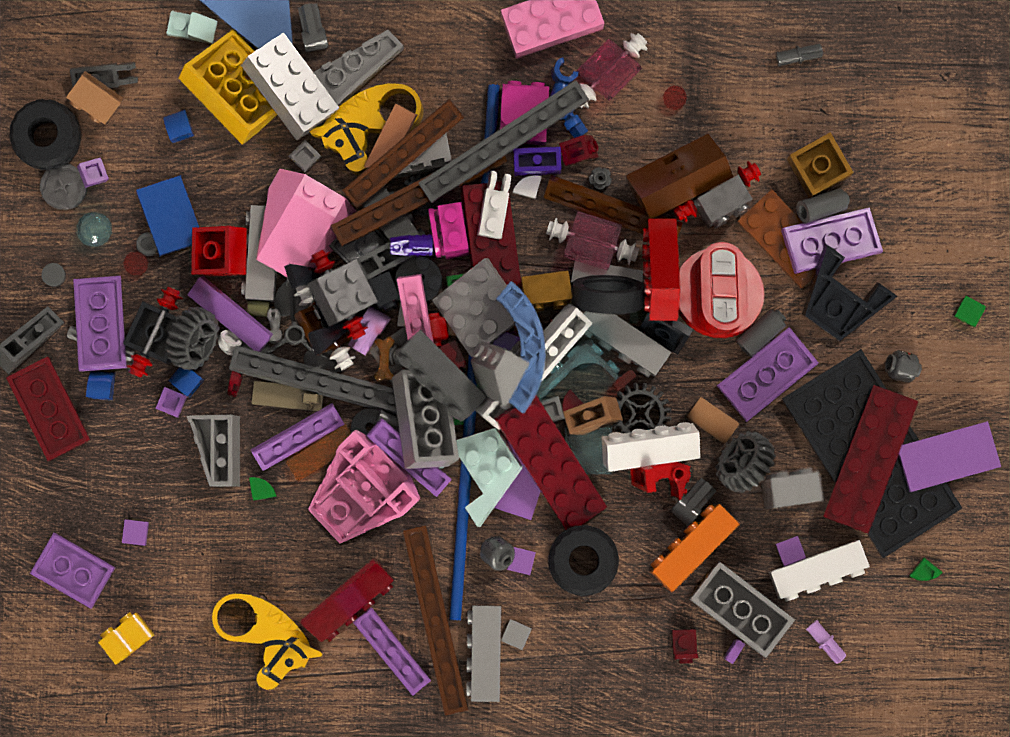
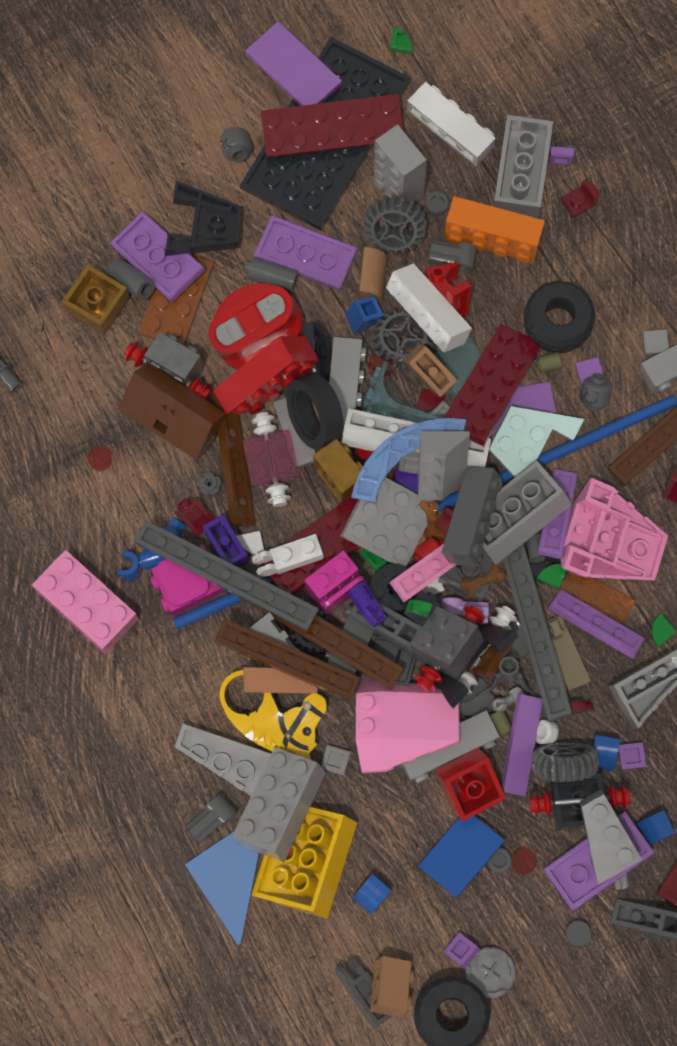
camera: 115 degrees left, 10 degrees down
(93, 229) = (514, 920): clear light blue hair -> none
(109, 334) = (607, 838): none -> light grey wedge
(192, 27) = (270, 936): light aqua slope -> none
(357, 421) = (552, 575): none -> green tile
(380, 286) = (419, 607): none -> green tile
(454, 342) = (432, 528): none -> clear orange piece
(549, 529) = (549, 362): none -> olive hinge
(611, 68) = (102, 526): clear pink plate -> none
(680, 392) = (363, 314): none -> blue brick
(751, 515) = (436, 203): none -> dark grey tile
(790, 551) = (448, 156): medium lavender tile -> none
(826, 642) = (508, 88): lavender axle -> none
(969, 311) = (156, 117): green tile -> none

